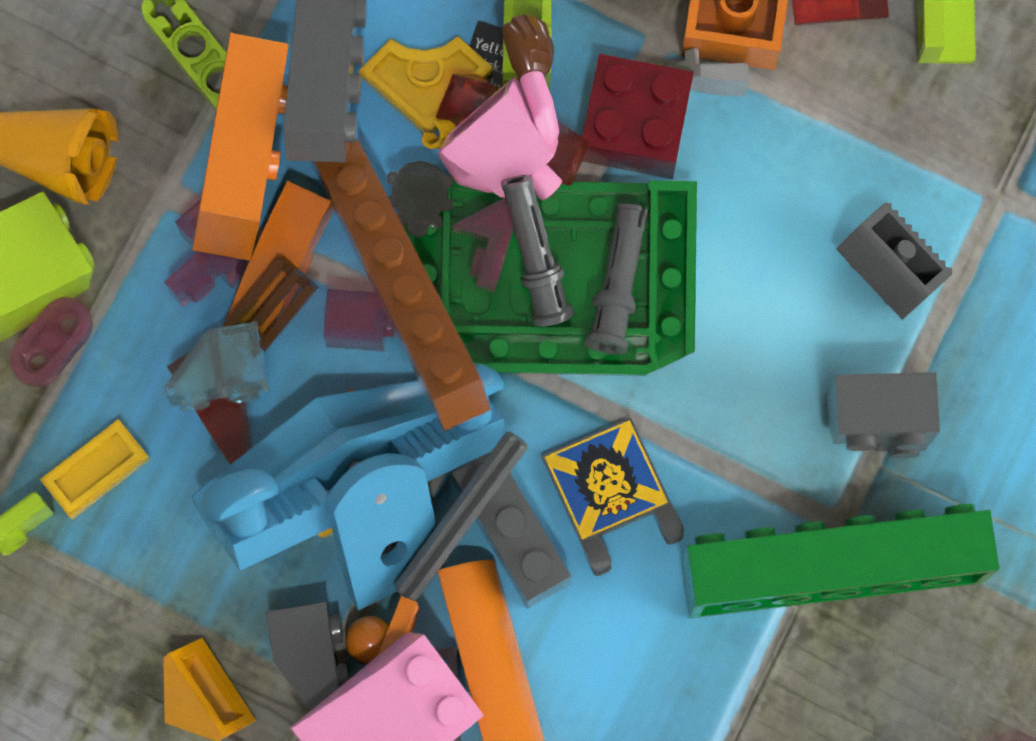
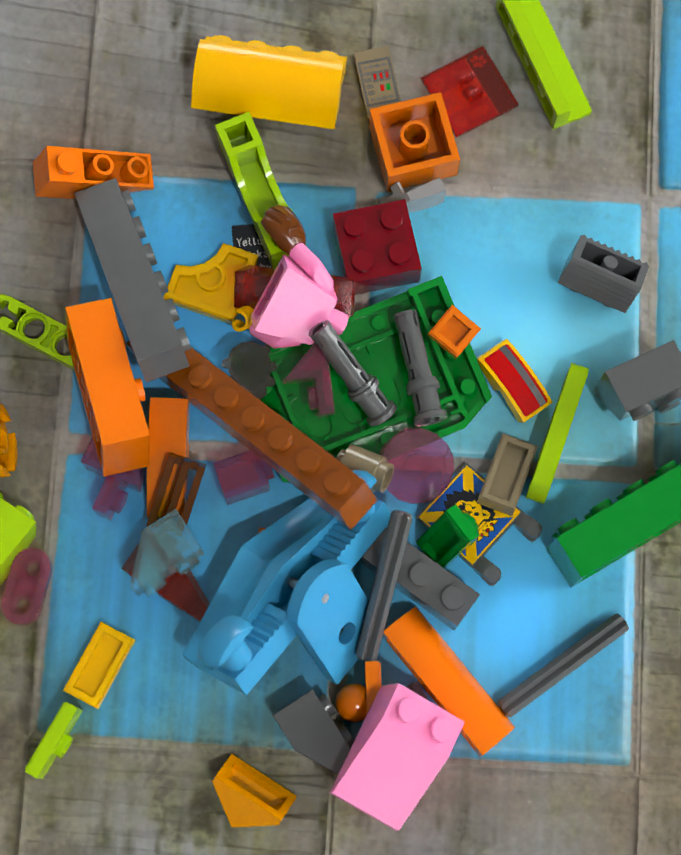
camera: 25 degrees left, 0 degrees up
(512, 368) = (373, 463): none -> dark tan brick
(566, 394) = (420, 465): none -> clear pink tile
(567, 493) = (449, 536): none -> green tile
(637, 704) = (563, 665): none -> dark grey axle
(671, 451) = (507, 474): none -> dark tan tile
(681, 253) = (454, 331): none -> orange tile
(730, 343) = (515, 380): none -> slope
(754, 427) = (557, 433): none -> lime beam

